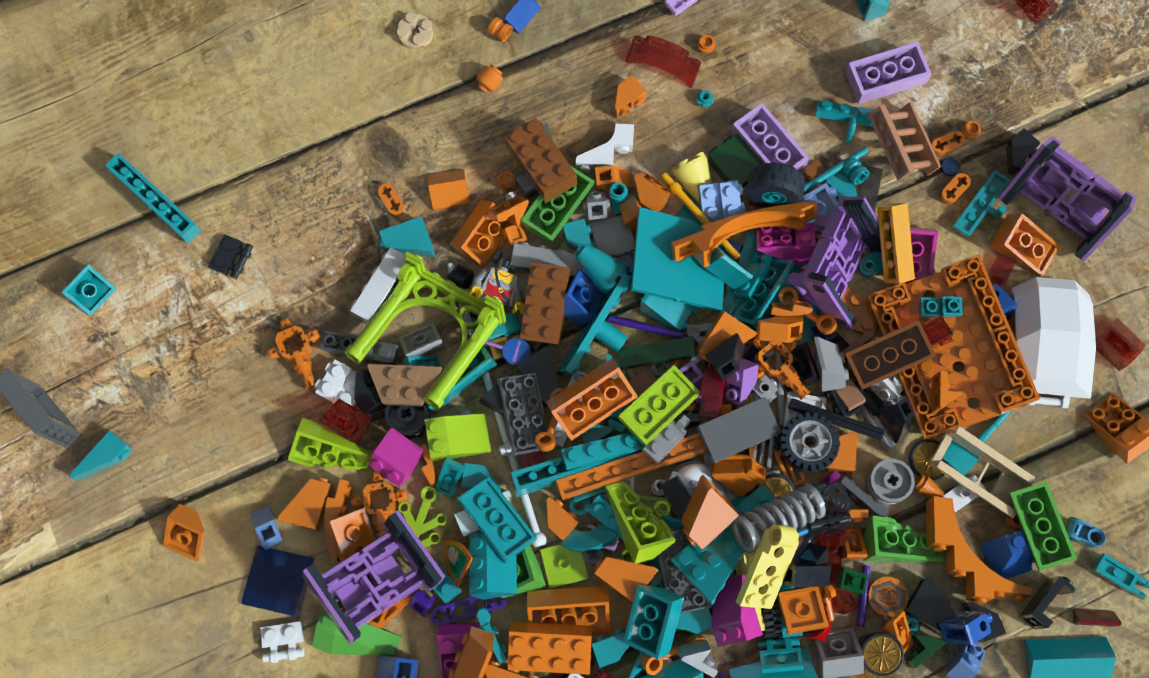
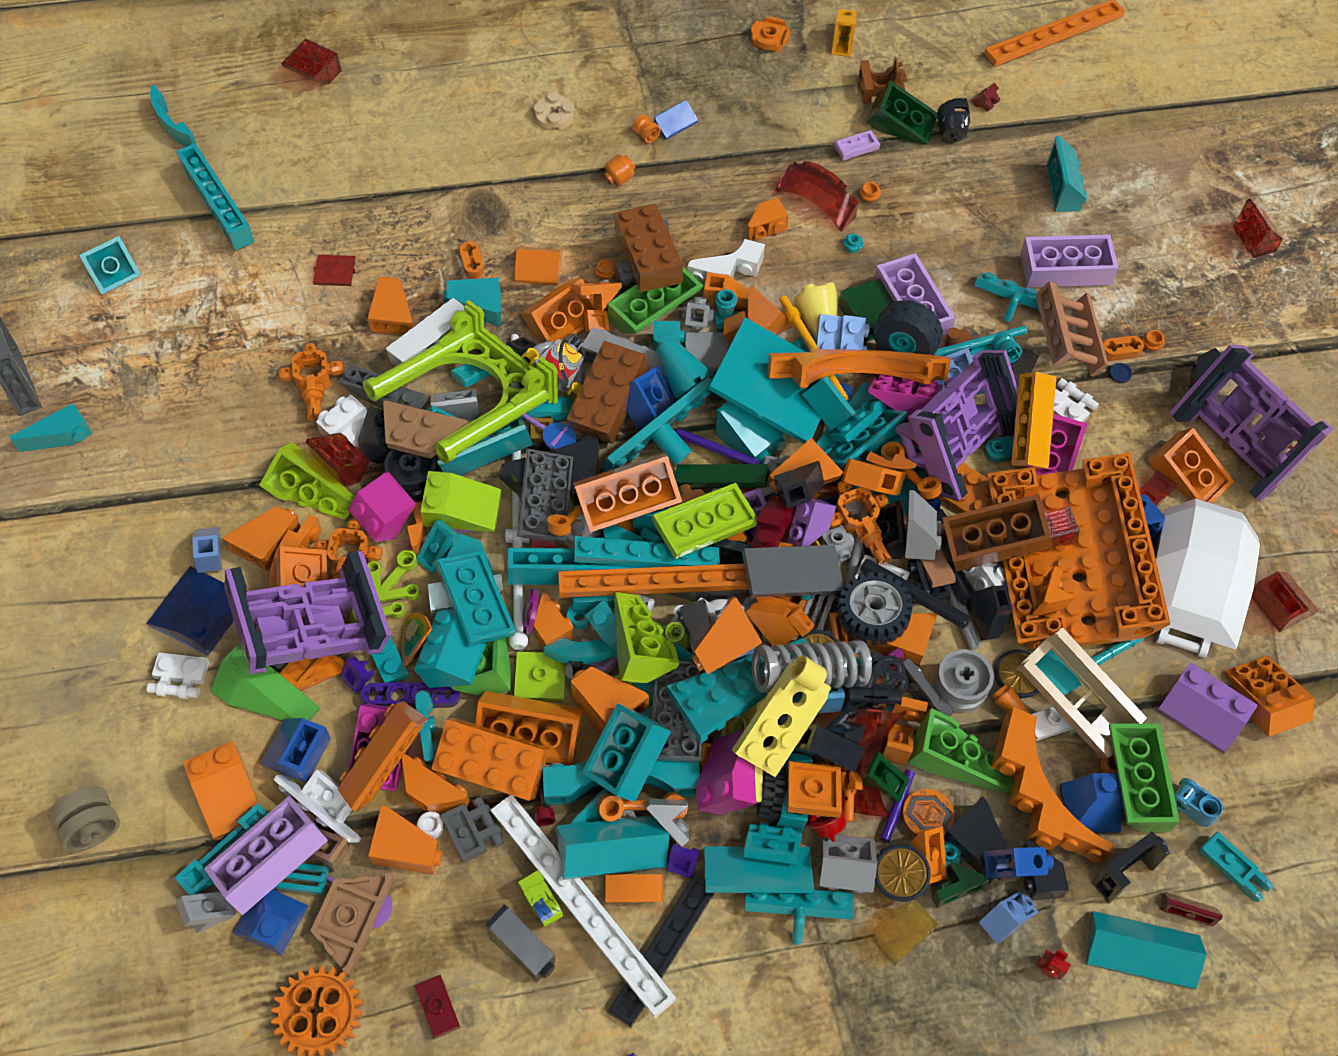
camera: 10 degrees right, 15 degrees down
(97, 139) = (178, 132): none -> teal slope
(184, 532) = (111, 529): orange slope -> none
(189, 37) = (314, 62): none -> clear red slope
(227, 253) = (272, 269): black plate -> none
(278, 240) = (334, 270): none -> clear red piece
(339, 267) = (389, 308): none -> orange slope
(424, 314) = (468, 374): none -> teal plate
(542, 515) = (530, 611): none -> magenta wheel
(666, 440) = (703, 558): light grey hinge -> none
(919, 216) = (1068, 408): none -> white plate
(945, 306) = (1081, 502): teal slope -> none
(952, 187) = (1118, 392): orange beam -> none
(982, 204) = (1147, 417): teal plate -> none
(1077, 452) = (1207, 707): none -> medium lavender slope

